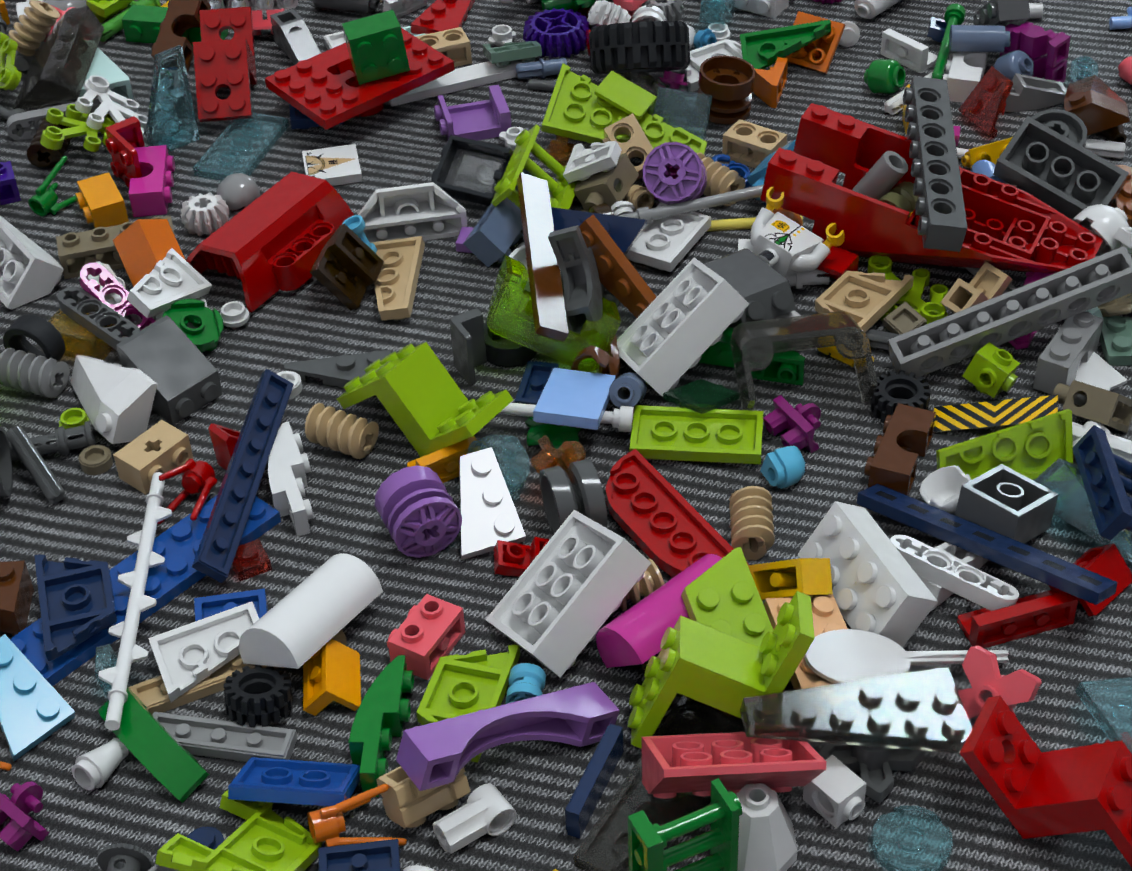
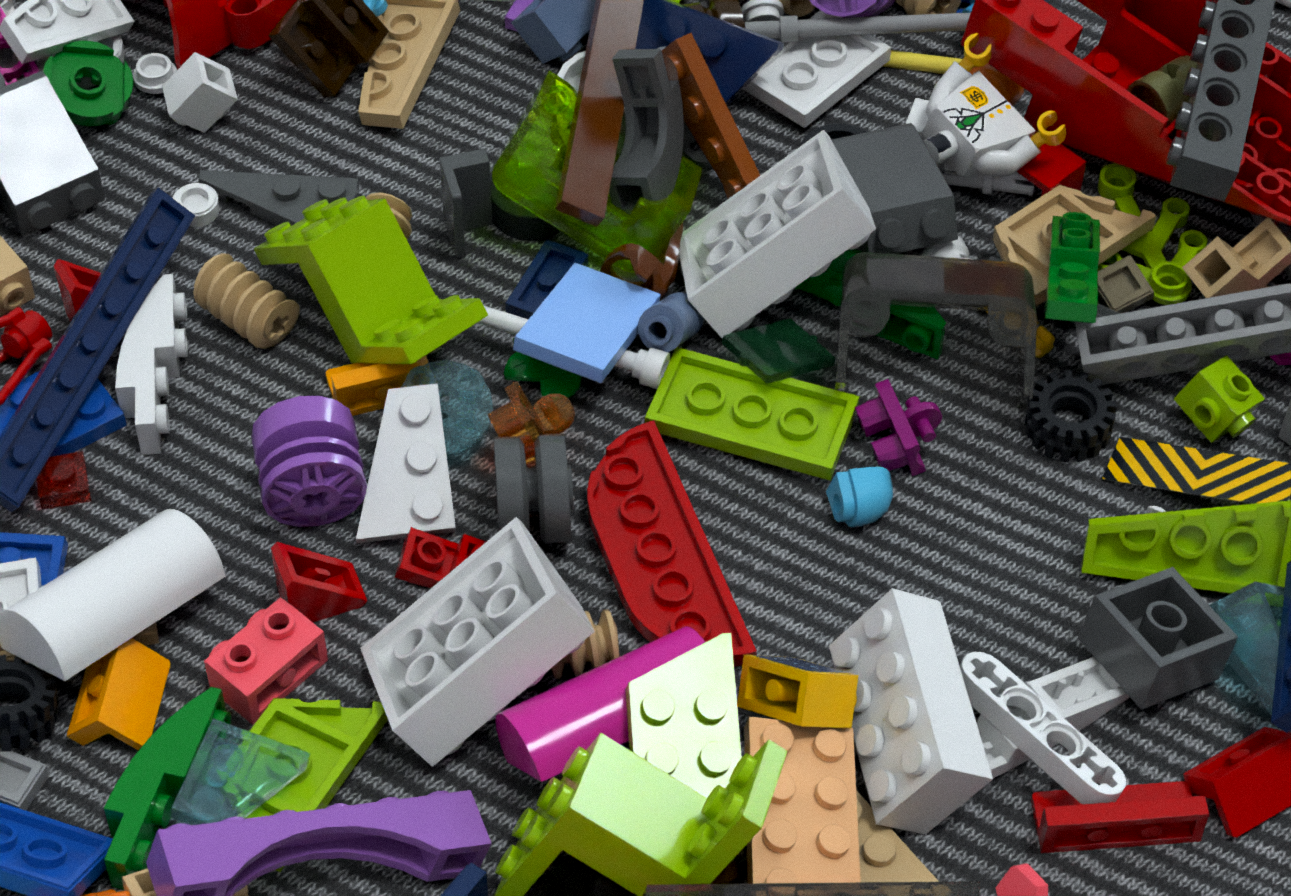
camera: 10 degrees right, 10 degrees up
(269, 318) = (199, 93): none -> white brick
(433, 699) = (235, 774): none -> clear light blue wing
(443, 583) = (316, 582): none -> red slope
(530, 686) = (379, 770): medium azure wheel -> none
(752, 521) = (780, 578): tan piece -> none
(862, 655) = (866, 840): white piece -> none
(876, 310) = (1073, 268): none -> green slope
(882, 175) = (1150, 46): light grey brick -> none
(897, 451) = (1056, 475): reddish brown arch -> none
(943, 488) = (1076, 580): white hair -> none
(988, 544) = (1110, 694): dark blue tile -> none

